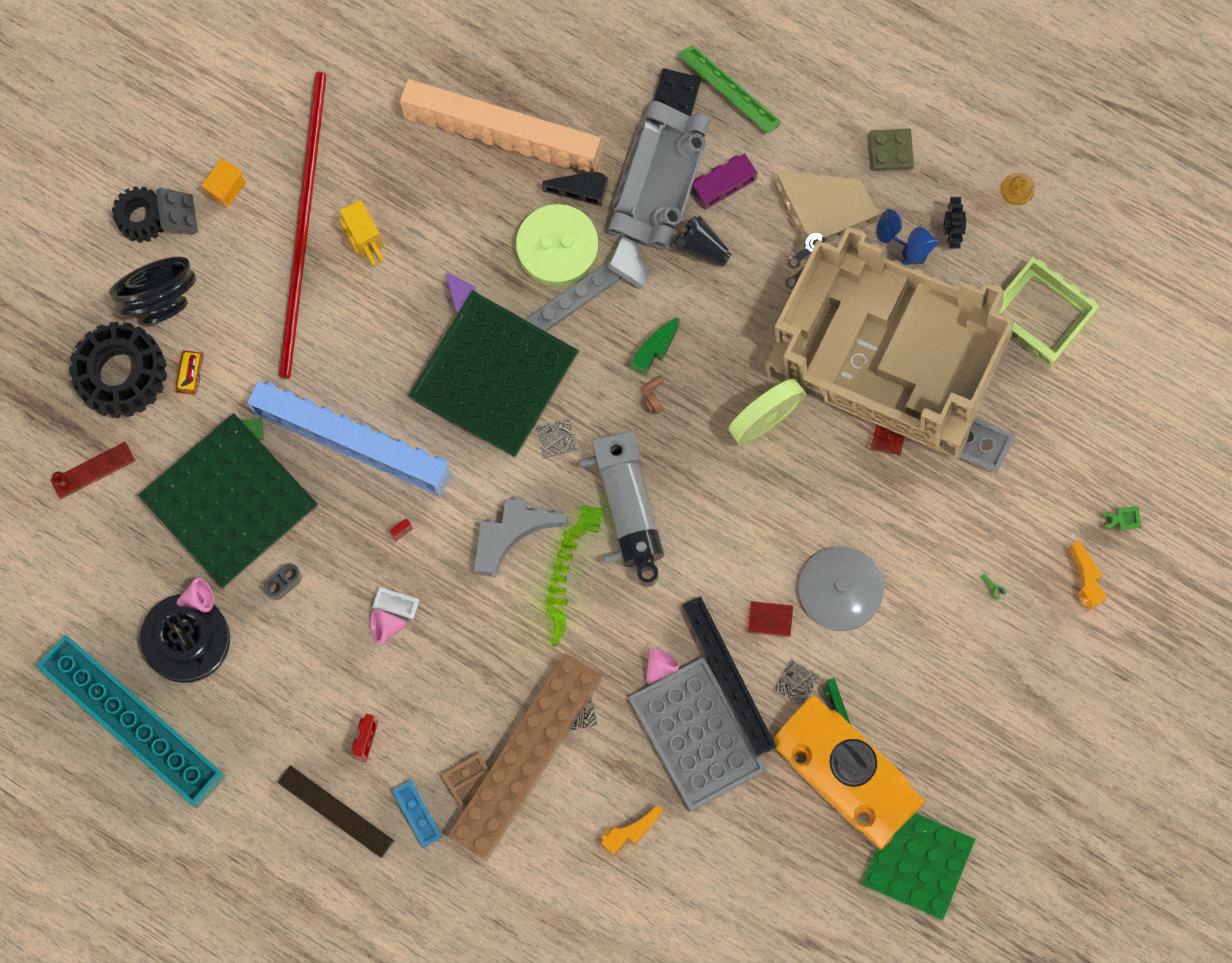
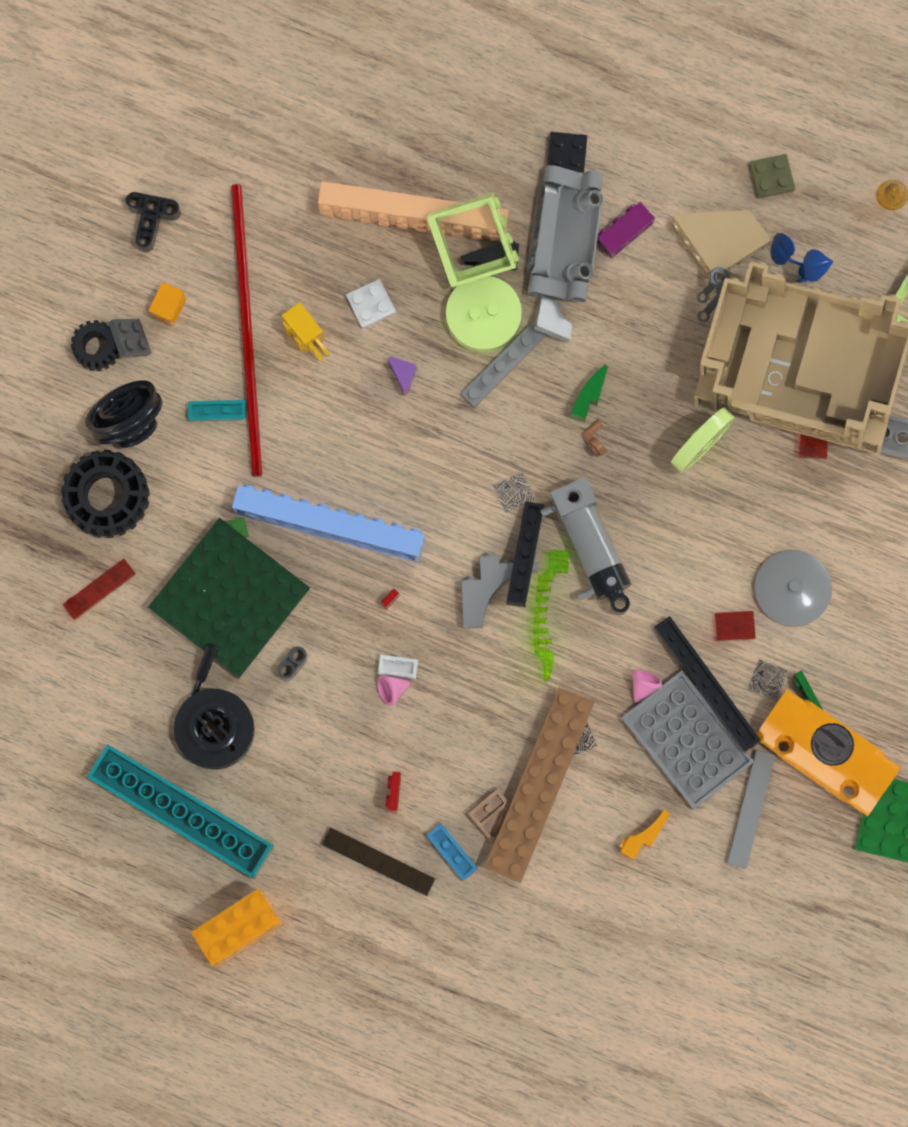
camera: 10 degrees left, 5 degrees up
(164, 856) = (237, 928): none -> light orange brick
(187, 567) = (204, 666): none -> black axle
(189, 372) = (169, 485): slope -> none
(197, 596) = (219, 691): bright pink hat -> none
(229, 90) = (151, 215): none -> black beam
(254, 302) = (217, 410): none -> teal plate
(440, 217) = (371, 304): none -> white plate
(493, 373) = (447, 442): dark green plate -> none
(531, 199) = (483, 270): none -> yellowish green piece
(553, 505) = (525, 555): none -> black plate
(702, 243) = (615, 291): black cone -> none
(728, 87) = (615, 141): bright green plate -> none
(754, 821) = (751, 809): none -> light grey tile
(955, 223) = (842, 237): black gear -> none

